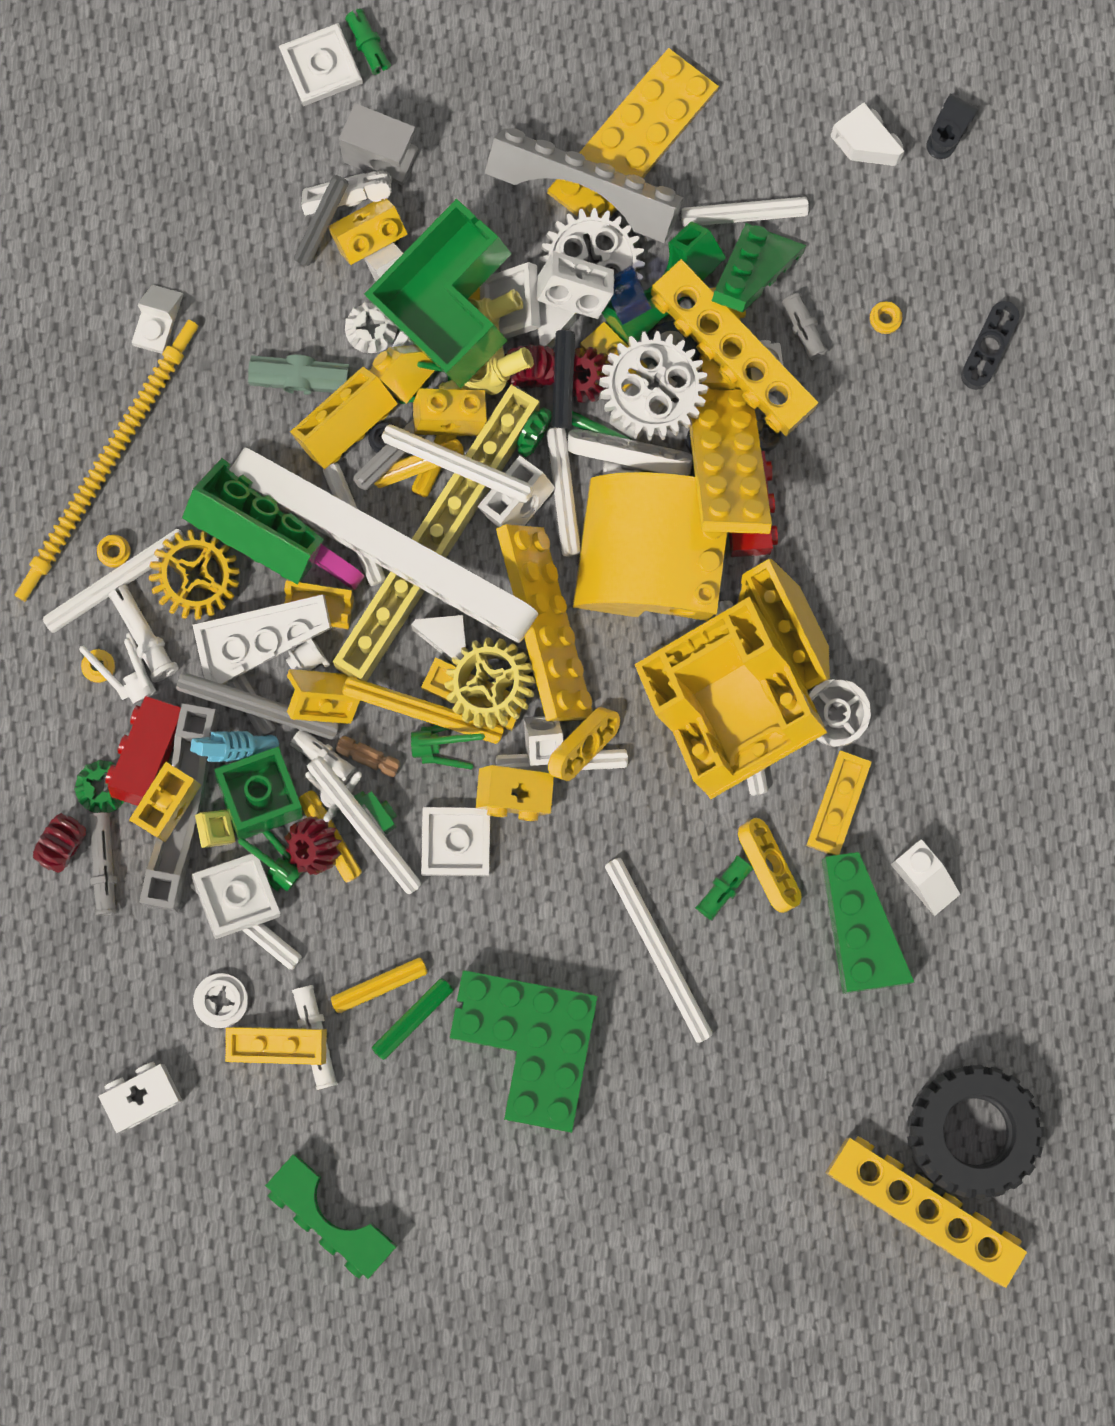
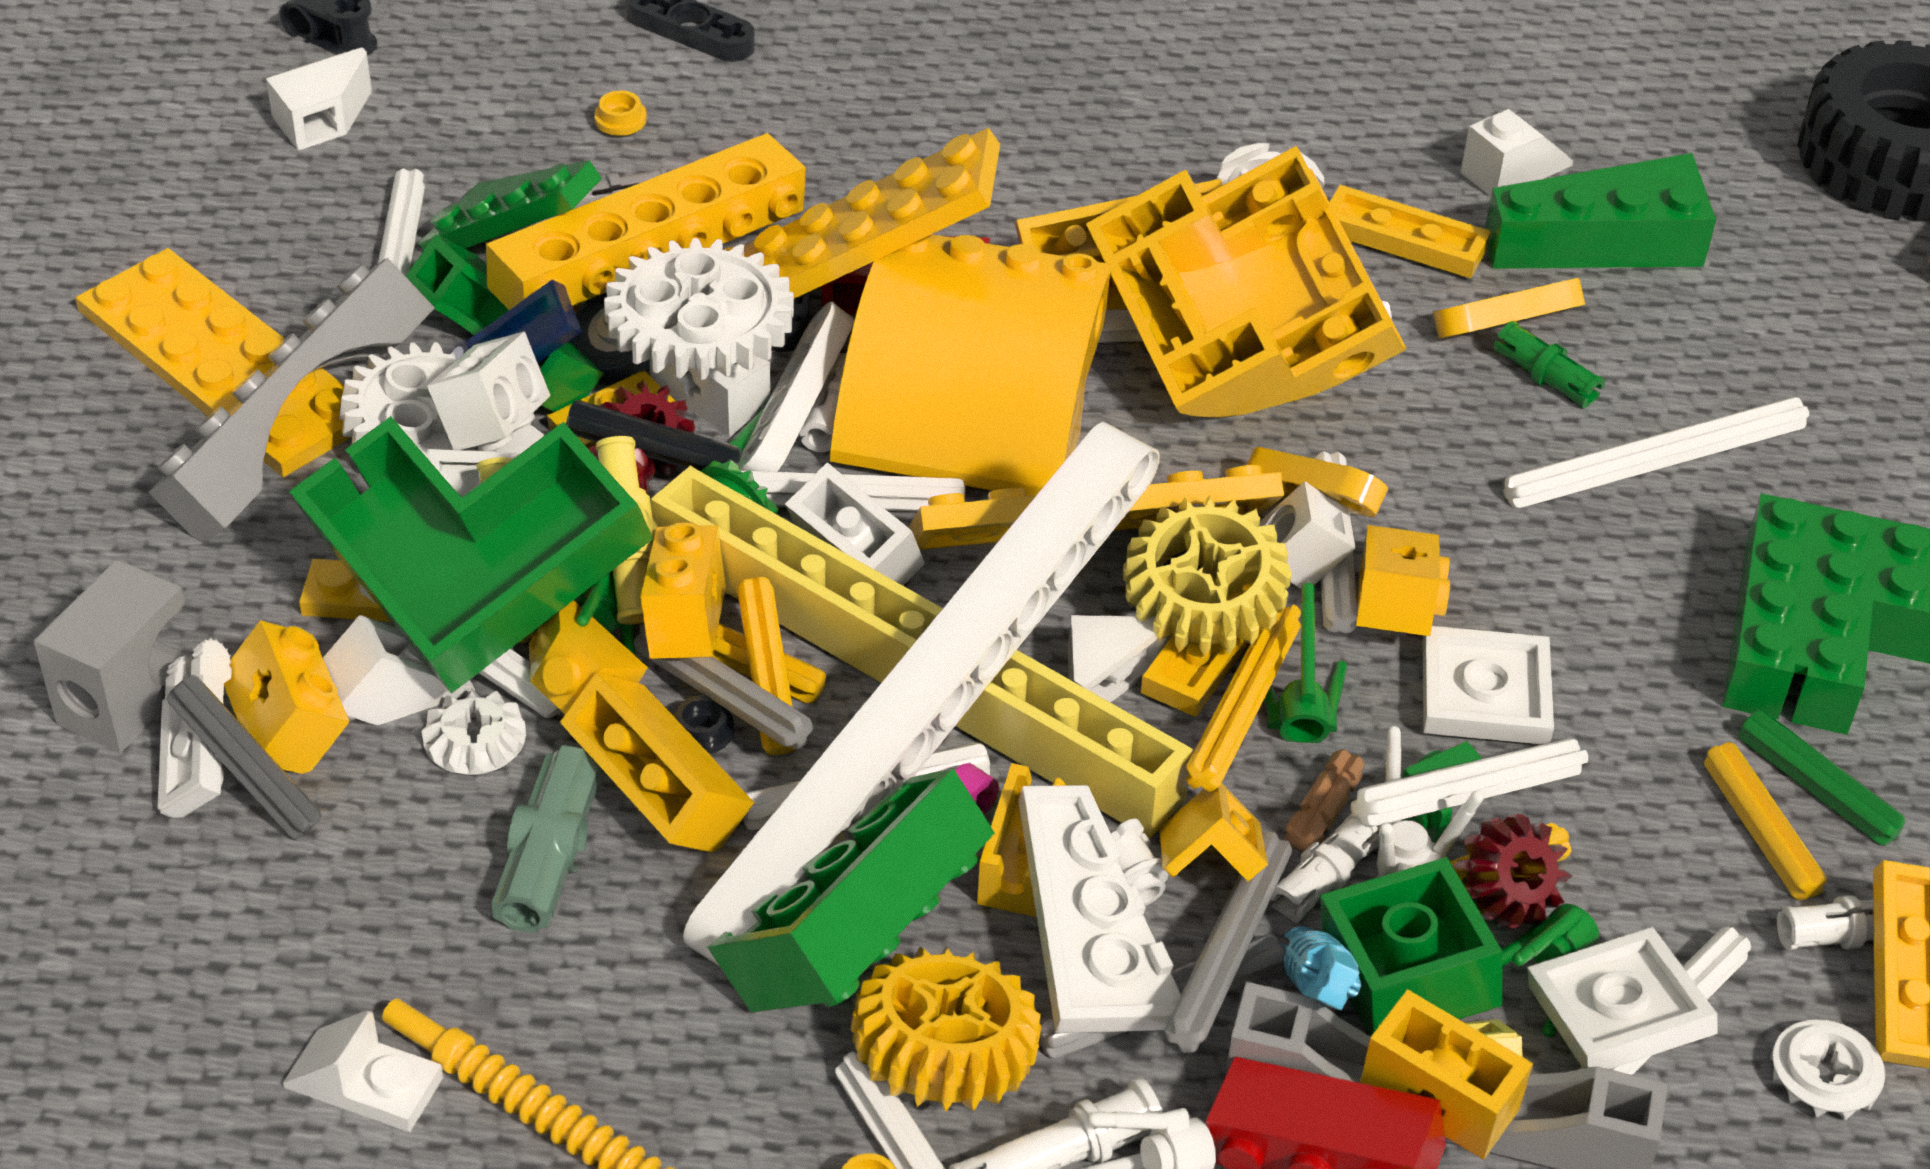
camera: 85 degrees left, 35 degrees down
(457, 463) = (788, 572): white axle -> none

